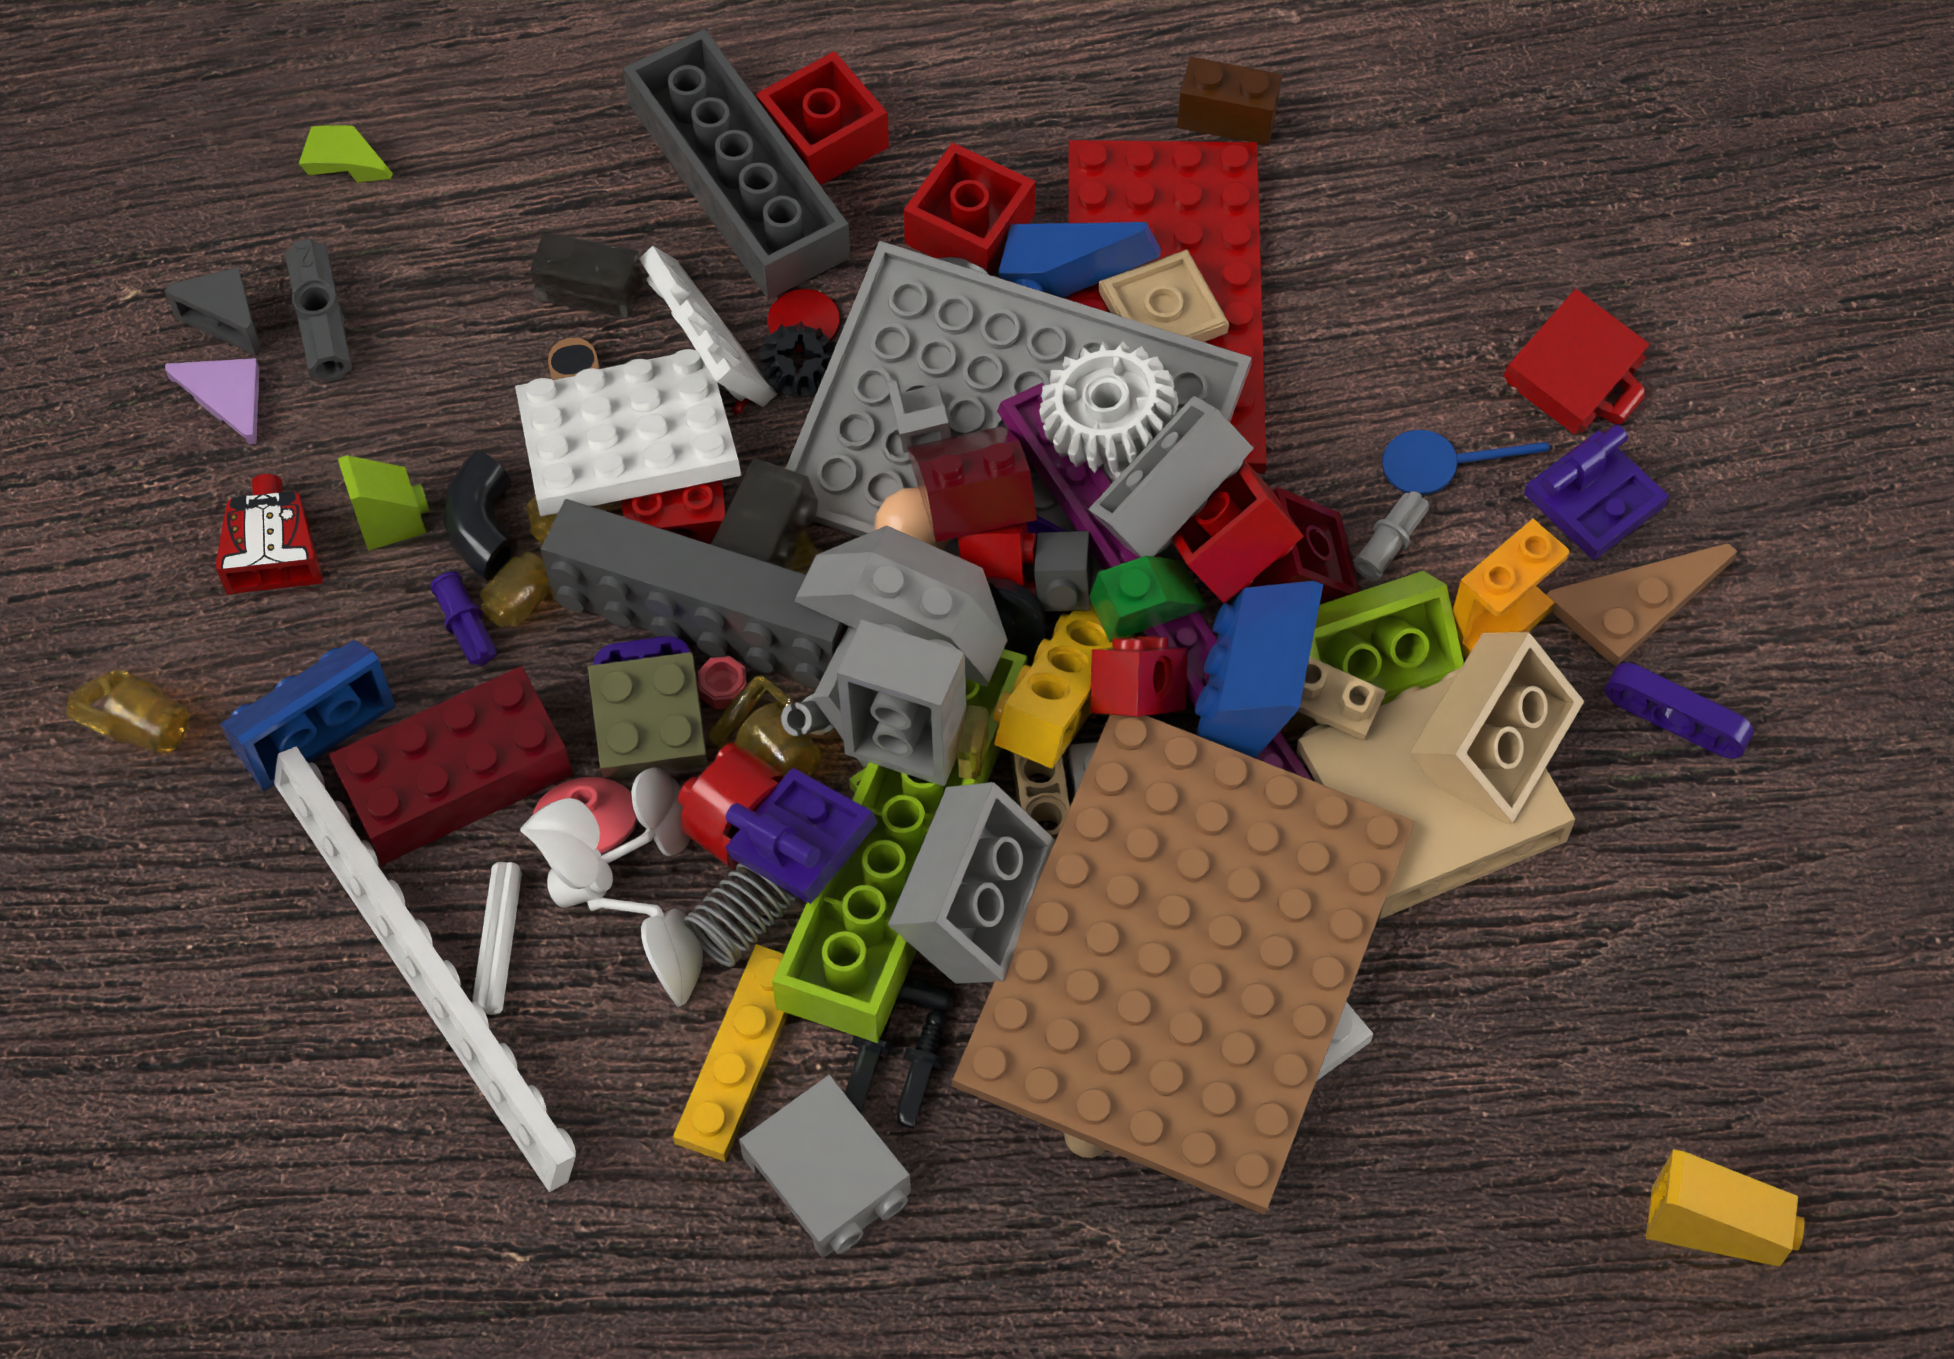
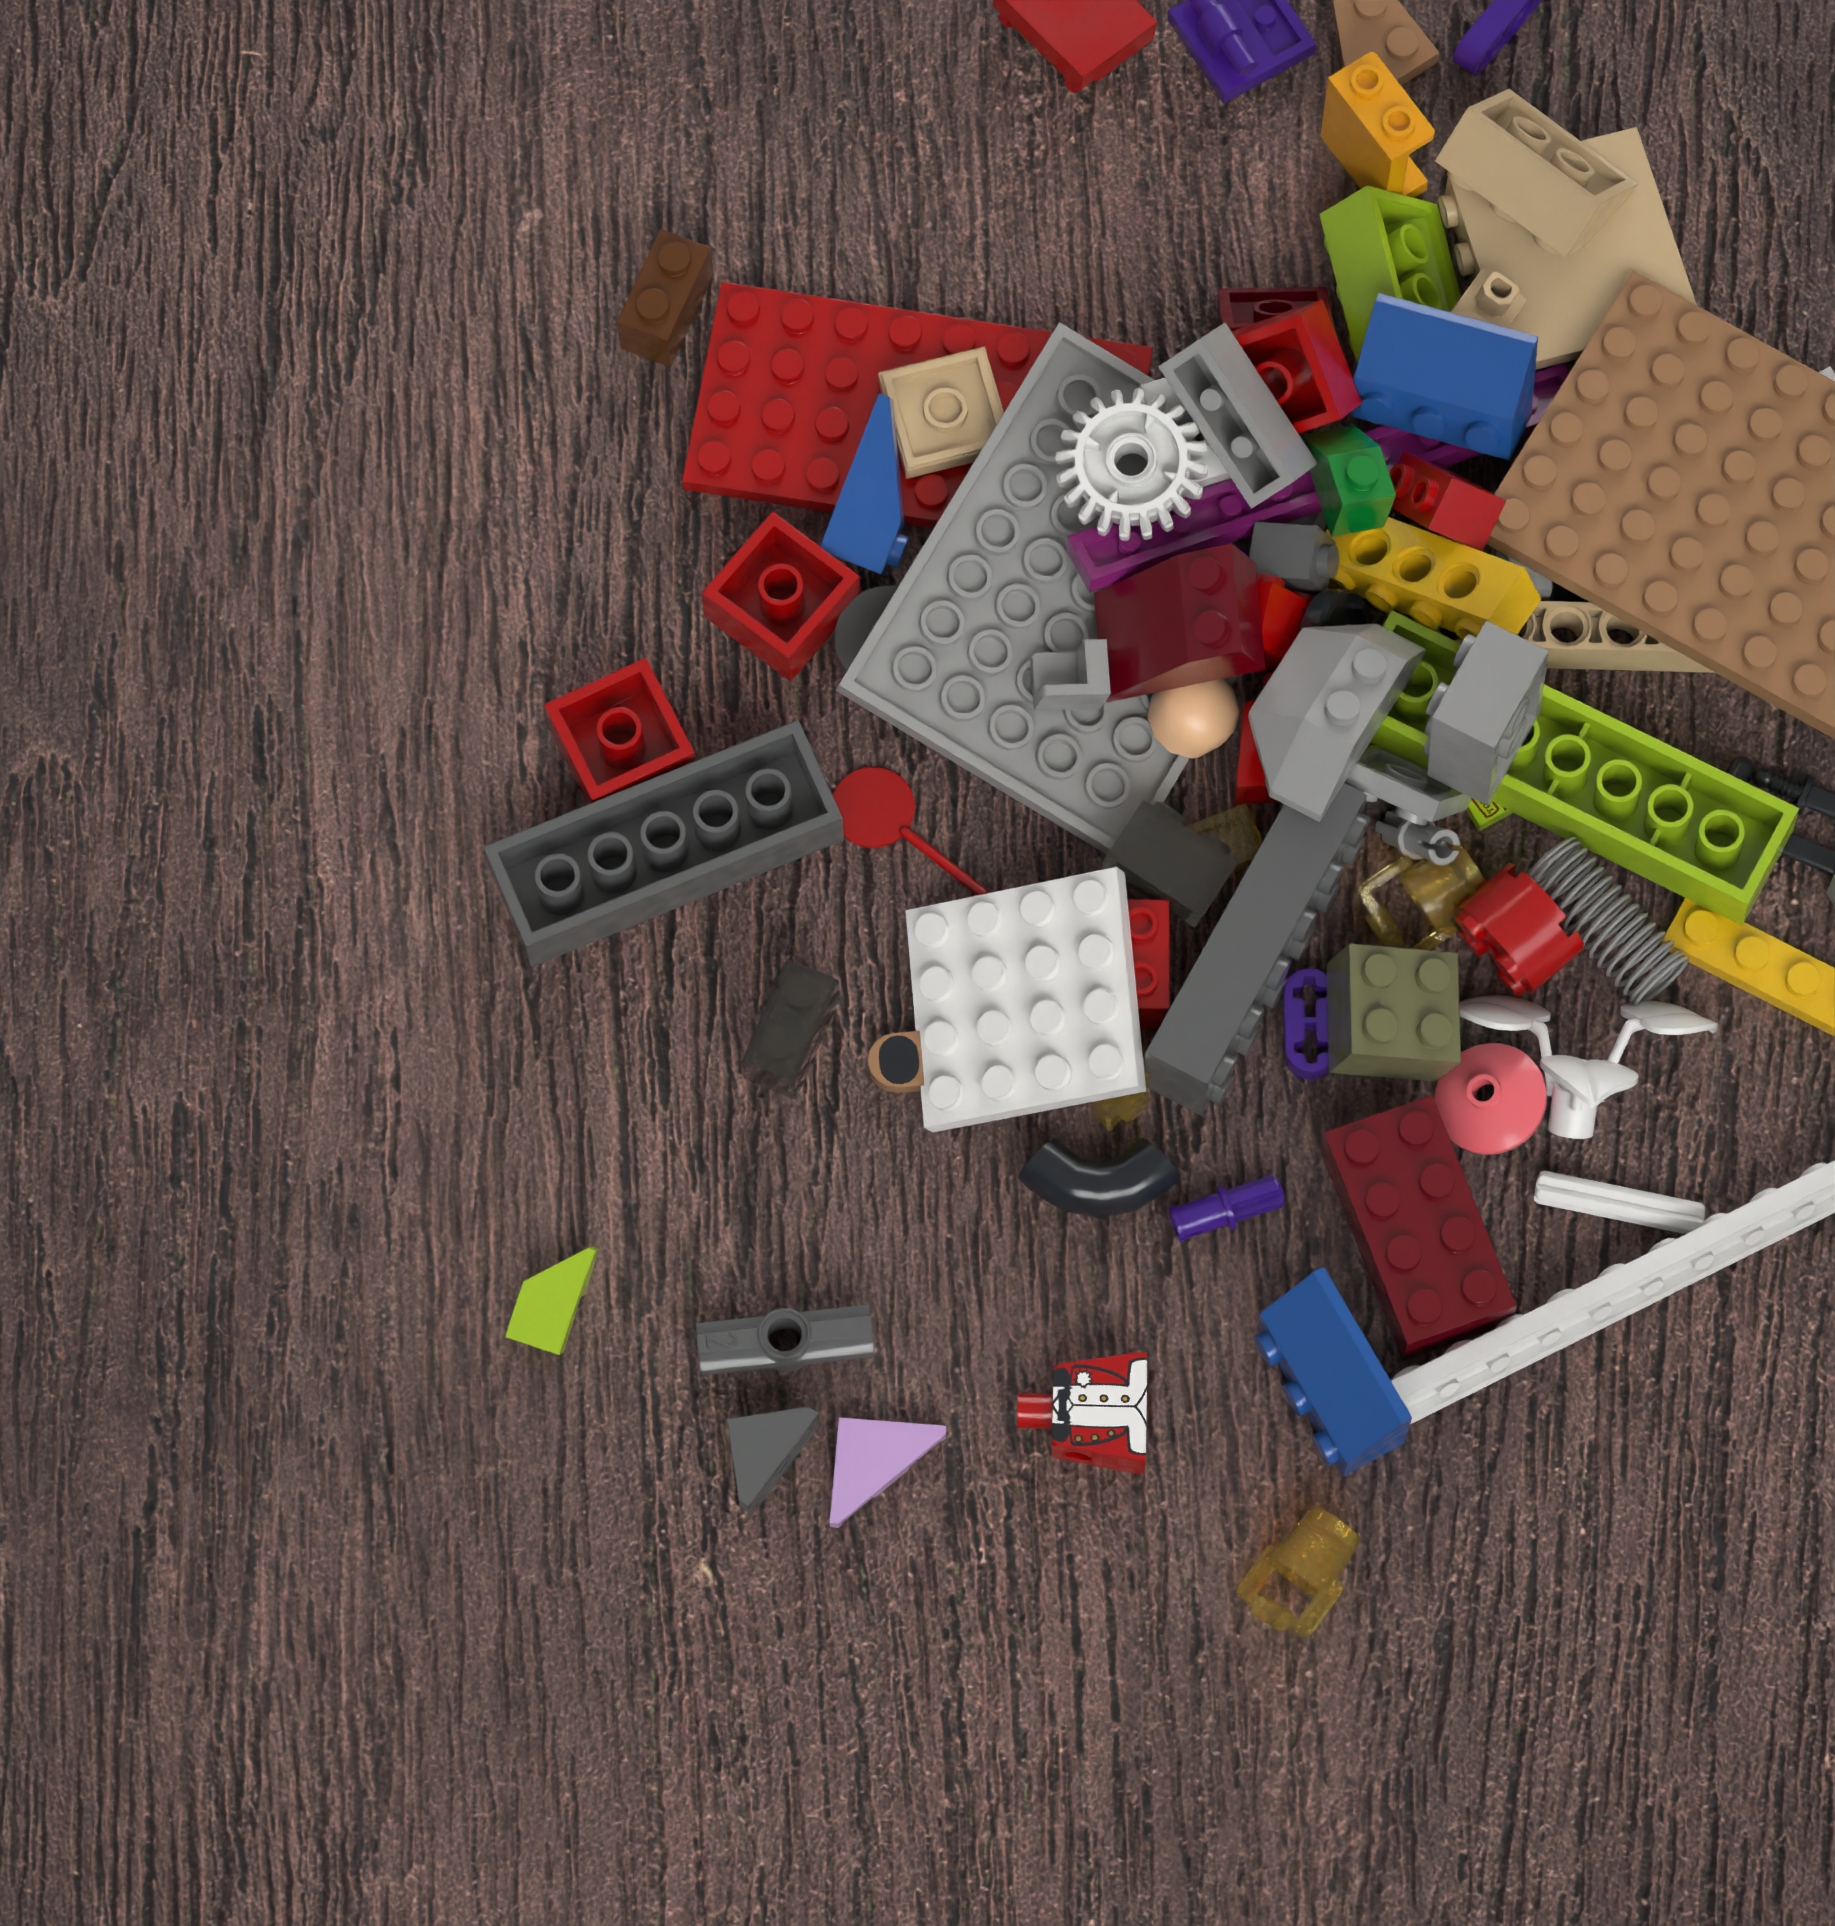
camera: 80 degrees left, 10 degrees up
(383, 501) = (1075, 1276): lime slope -> none
(515, 590) = (1202, 1144): clear yellow brick -> none
(705, 329) = (891, 903): white wing -> none
(721, 681) = (1342, 930): coral tile -> none
(780, 370) = (915, 824): black gear -> none
(799, 834) = (1589, 854): dark purple plate -> none
(972, 883) = (1667, 692): light grey brick -> none
(1391, 535) = (1258, 240): light grey axle -> none
(1428, 461) = (1166, 194): blue piece -> none

